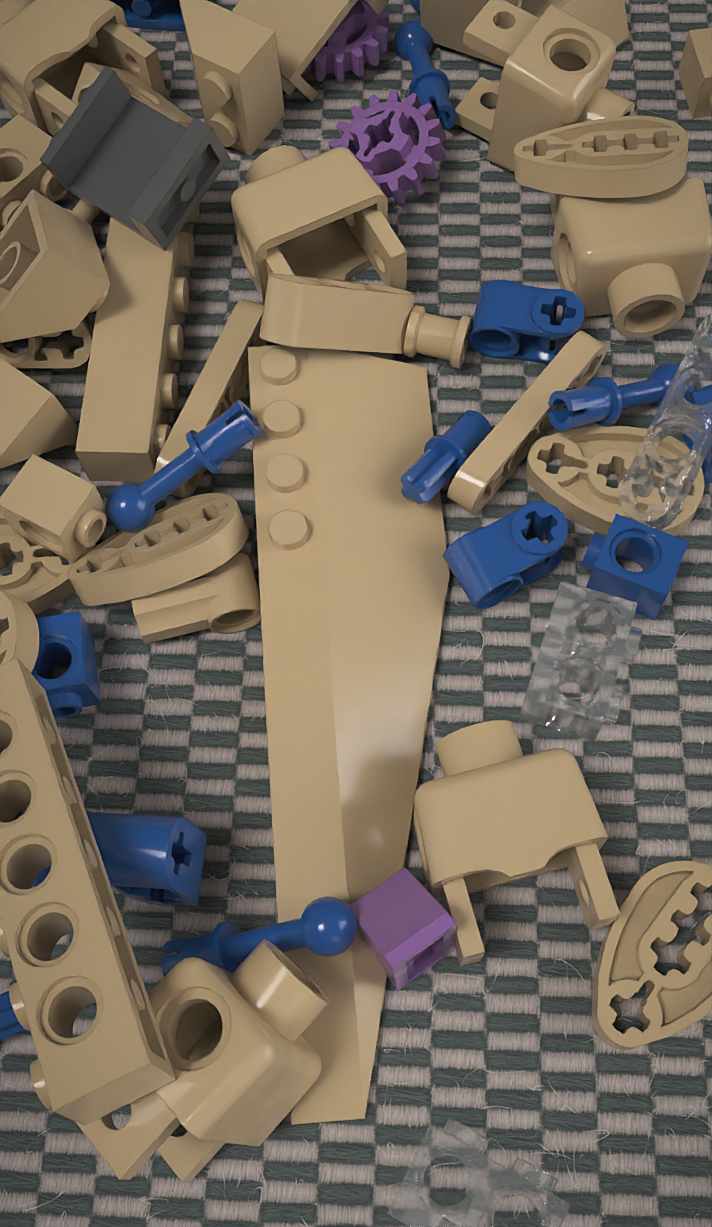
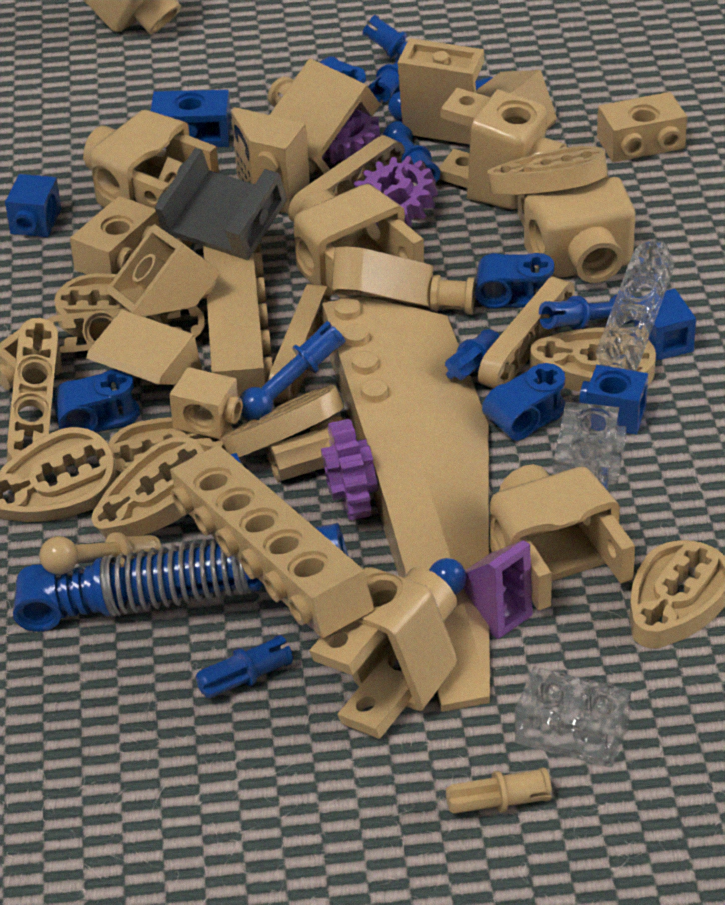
camera: 10 degrees left, 25 degrees down
(227, 672) = (349, 469): none -> medium lavender gear
(377, 75) = (347, 171): none -> tan beam

